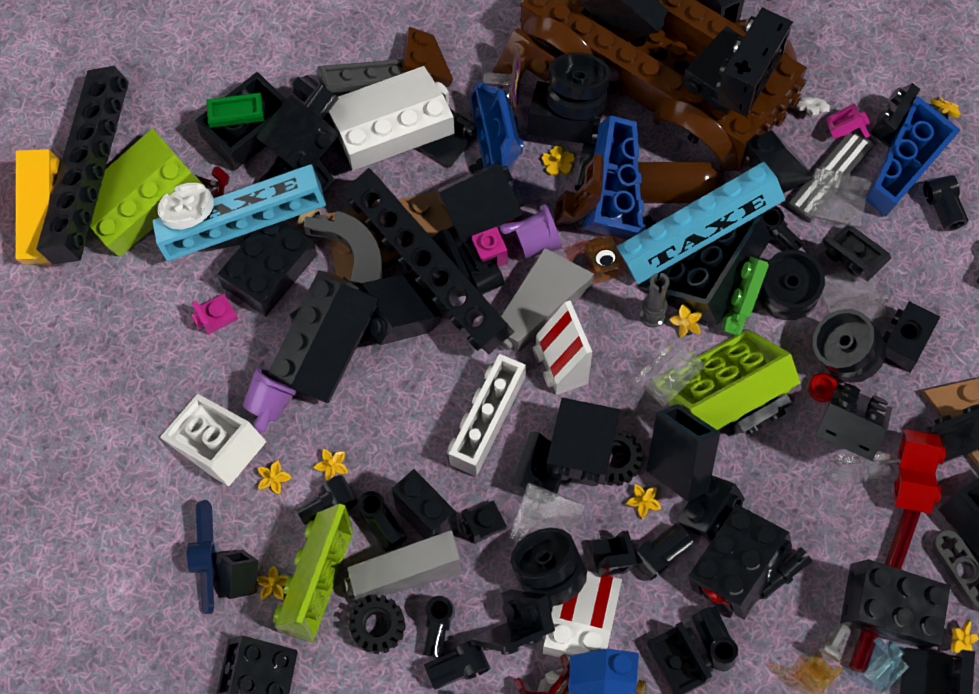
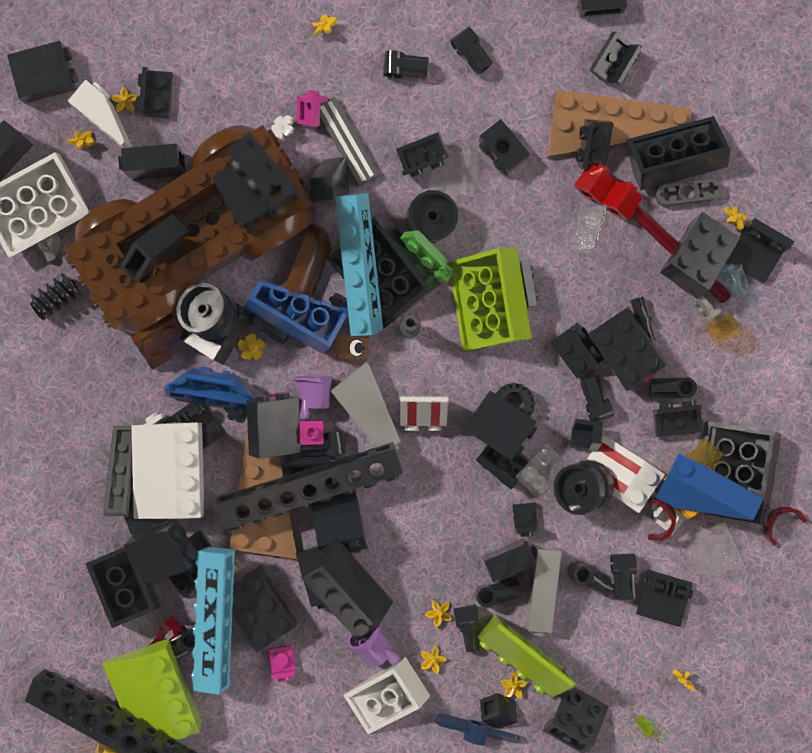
camera: 70 degrees left, 20 degrees up
(185, 206) = (194, 661): white tile -> none
(235, 110) = (117, 593): green tile -> none
(314, 95) = (133, 523): black piece -> none
(356, 237) = (273, 531): dark grey arch -> none
(377, 606) = (587, 622): black tyre -> none
(423, 50) = (116, 419): reddish brown wing -> none
(487, 414) = (454, 492): white brick -> none
(505, 80) = (175, 366): clear shield -> none
(527, 622) = (621, 527): black bracket -> none
(577, 205) = (302, 348): reddish brown slope -> none
(644, 500) = (551, 395): yellow plant -> none
(668, 373) = (471, 342): clear bracket -> none
(682, 452) = (538, 357): black brick -> none
(686, 320) = (427, 306): yellow plant -> none
(780, 230) = (383, 202): black pin -> none
(822, 387) = (516, 228): red tile -> none
(837, 197) = (372, 147): clear hinge -> none
(849, 345) = (497, 210): black wheel -> none
(855, 421) = (562, 222): black piece -> none
(892, 115) = (318, 69): black bracket -> none
(912, 150) = (357, 72): blue wedge -> none

